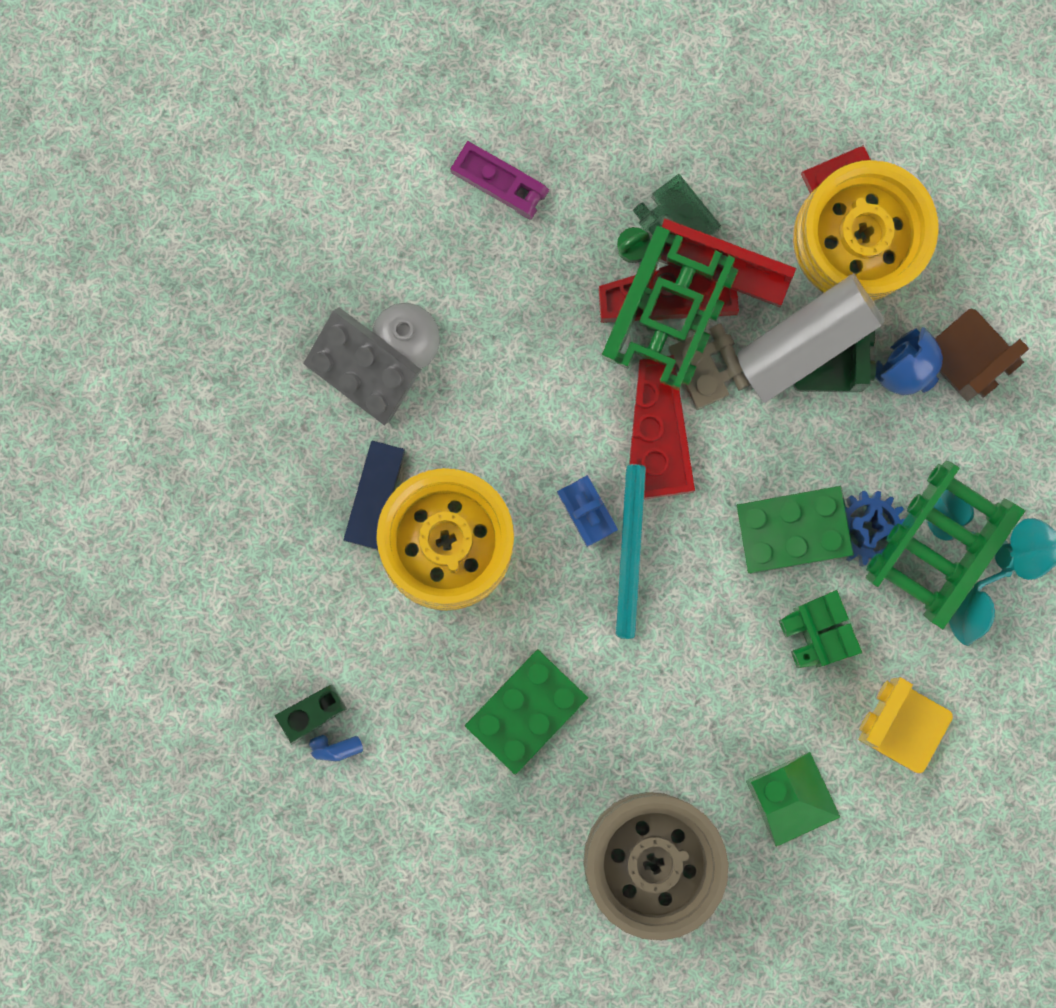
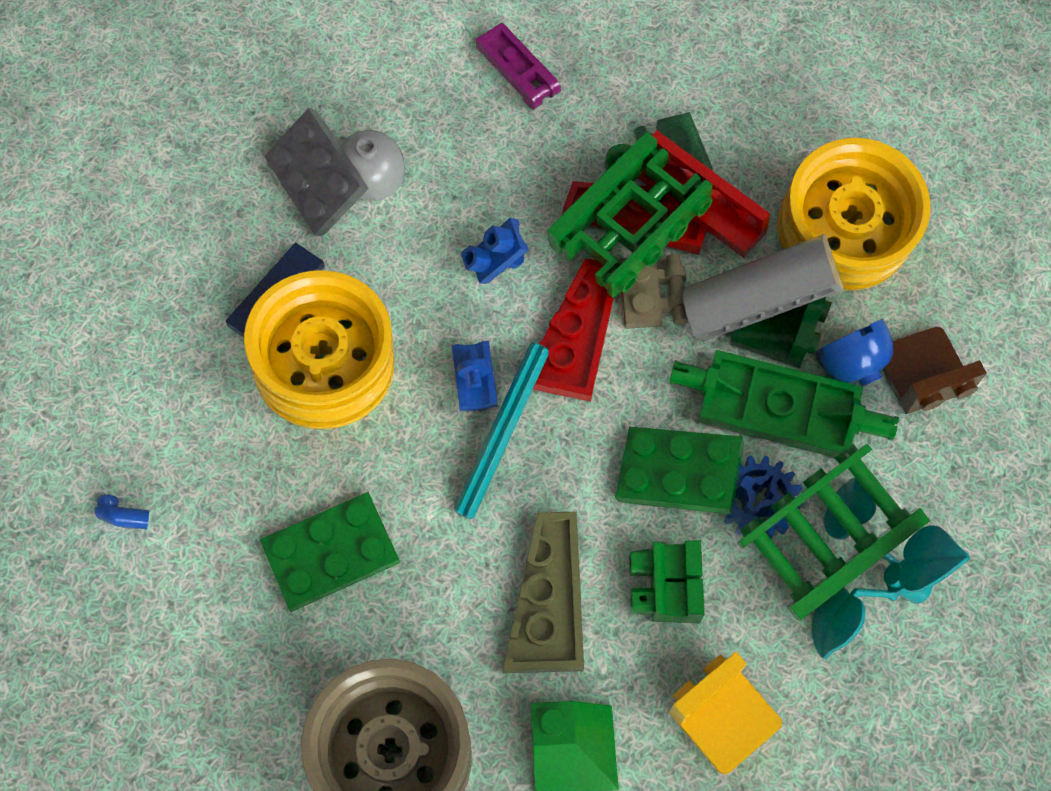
camera: 20 degrees right, 15 degrees down
(310, 713) = (111, 469): dark green leg -> none
(558, 385) = (500, 249): none -> blue hips
(729, 691) = (548, 612): none -> olive wing
(859, 434) = (782, 404): none -> green plate

